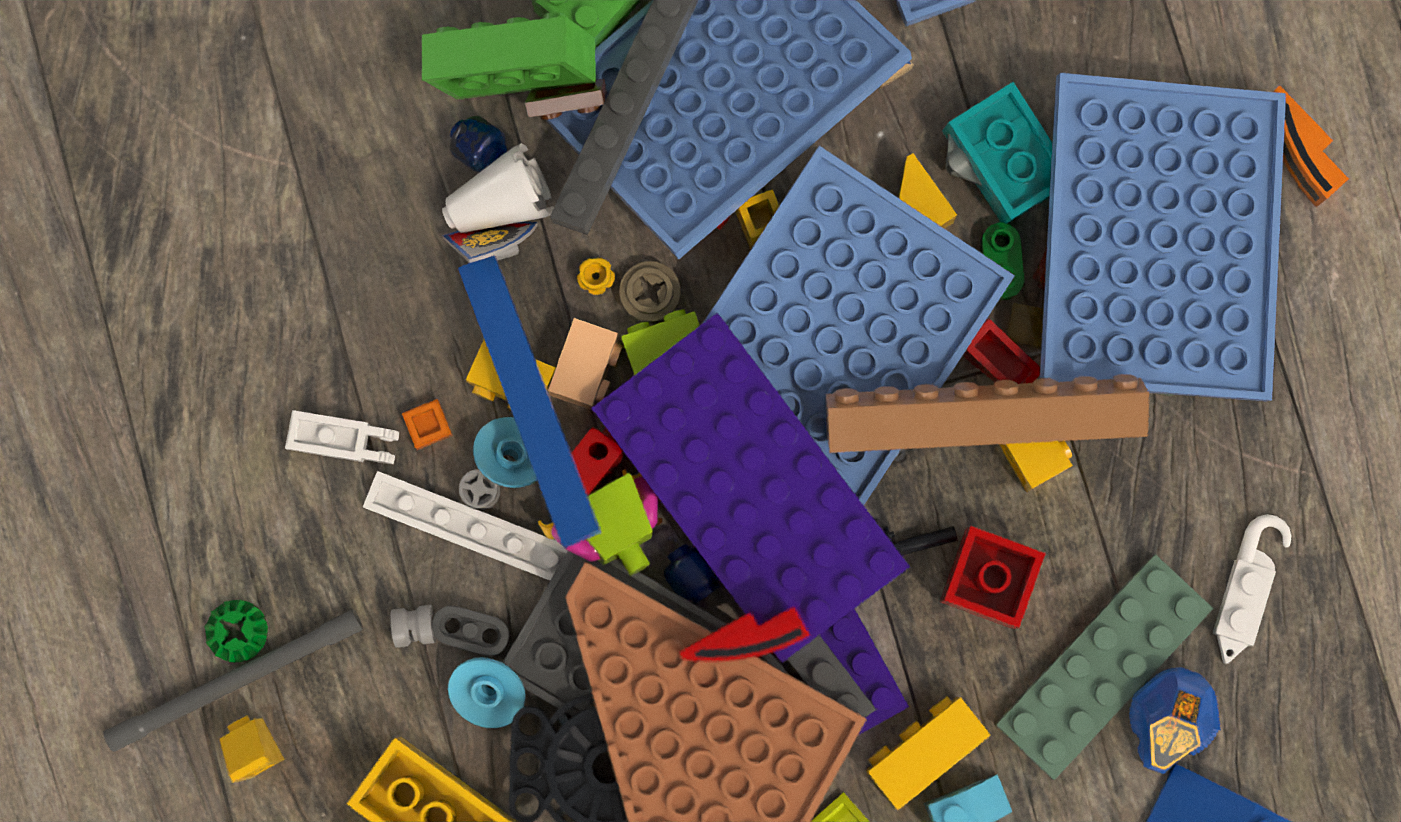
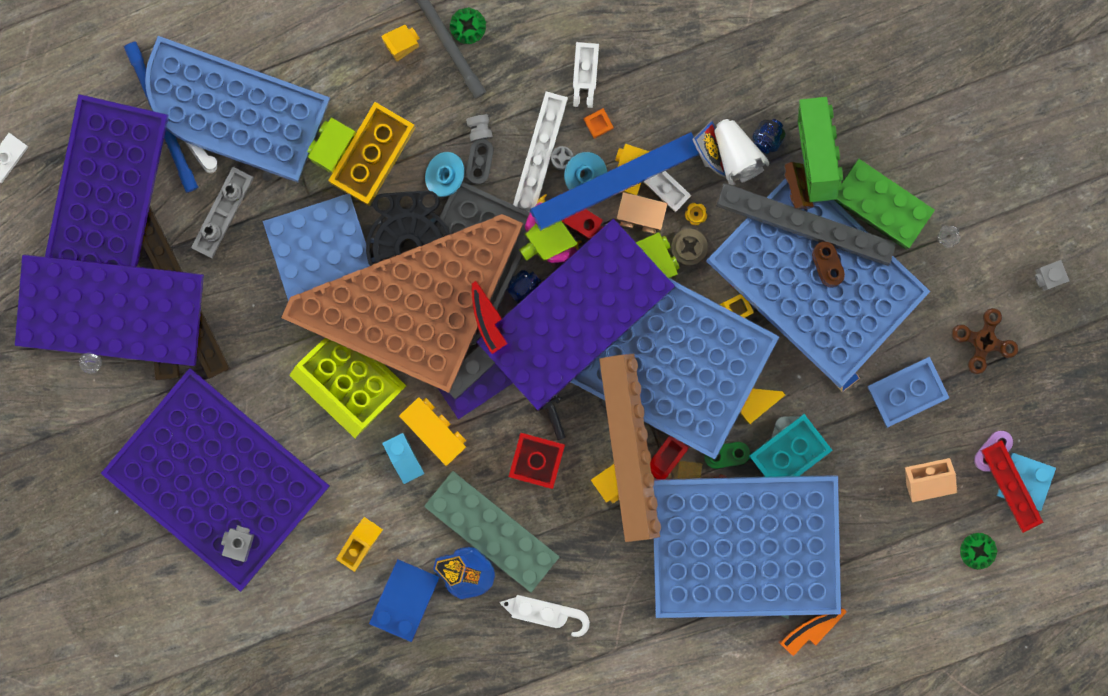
camera: 85 degrees right, 5 degrees up
(552, 316) = (668, 190): none -> white plate
(702, 63) = (825, 264): none -> reddish brown plate

